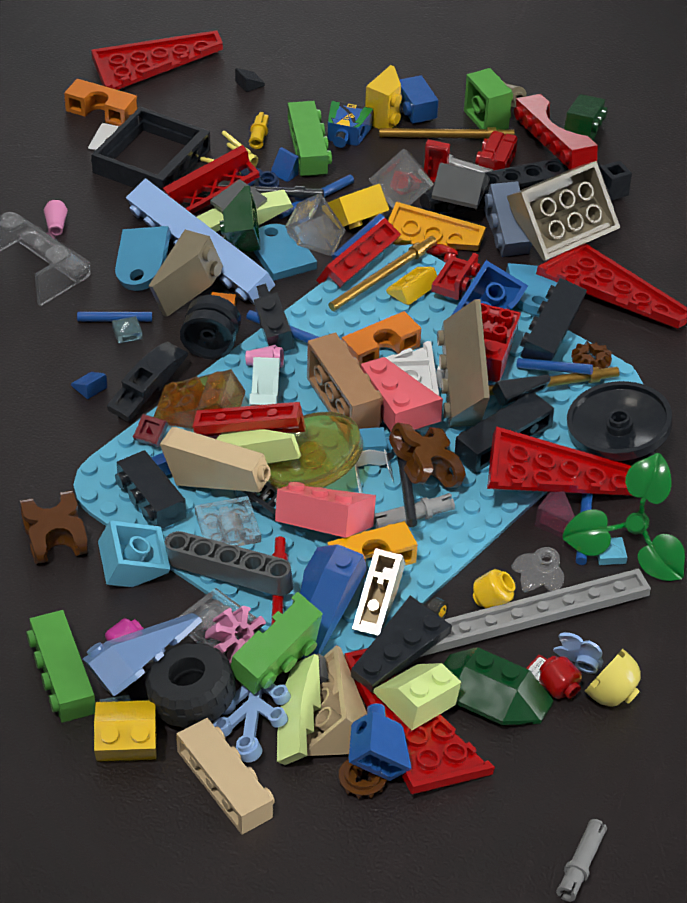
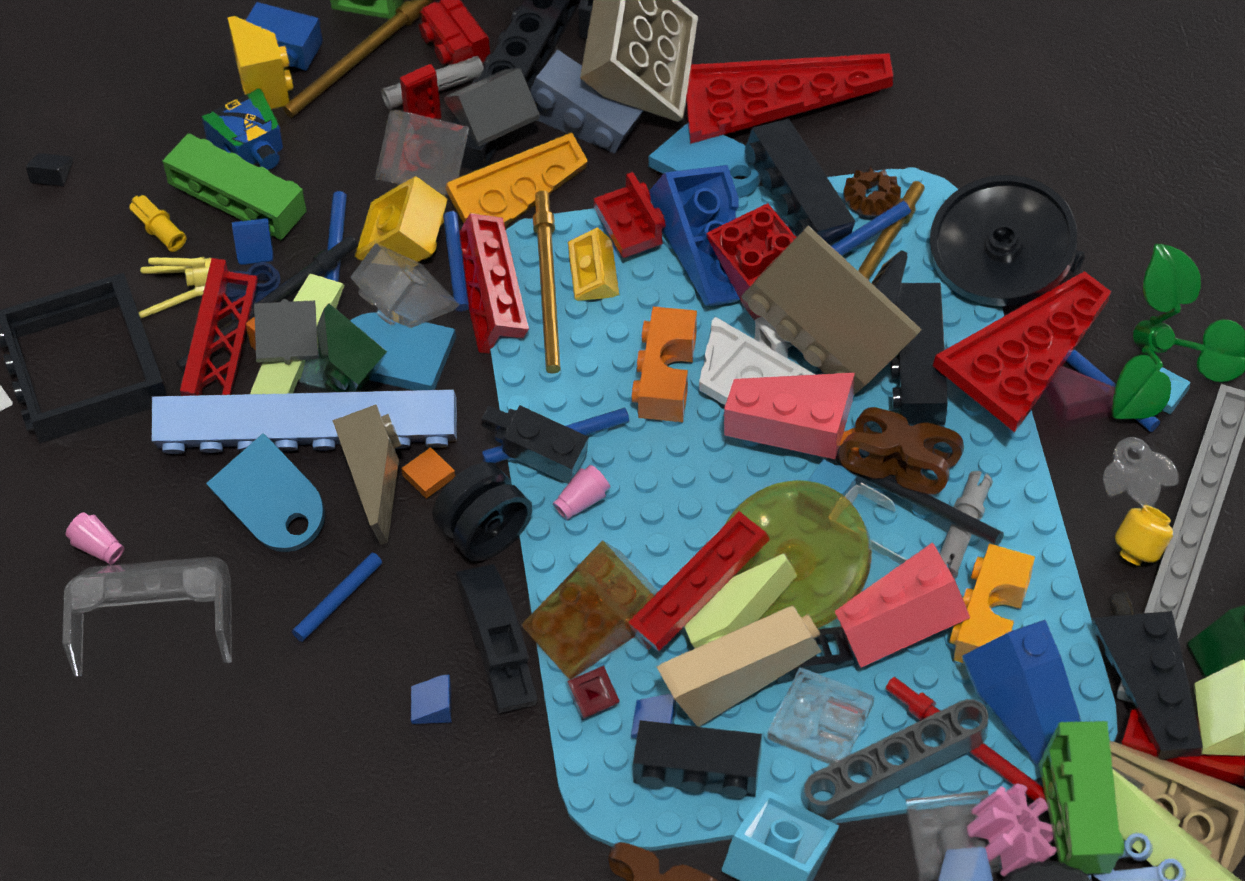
camera: 45 degrees left, 10 degrees up
(127, 329) = (374, 599): clear light blue tile -> none
(265, 381) = (641, 532): light aqua arch -> none
(342, 382) = (719, 448): medium nougat brick -> none
(379, 592) = (1082, 665): slope -> none
(443, 250) = (571, 195): red arm -> none

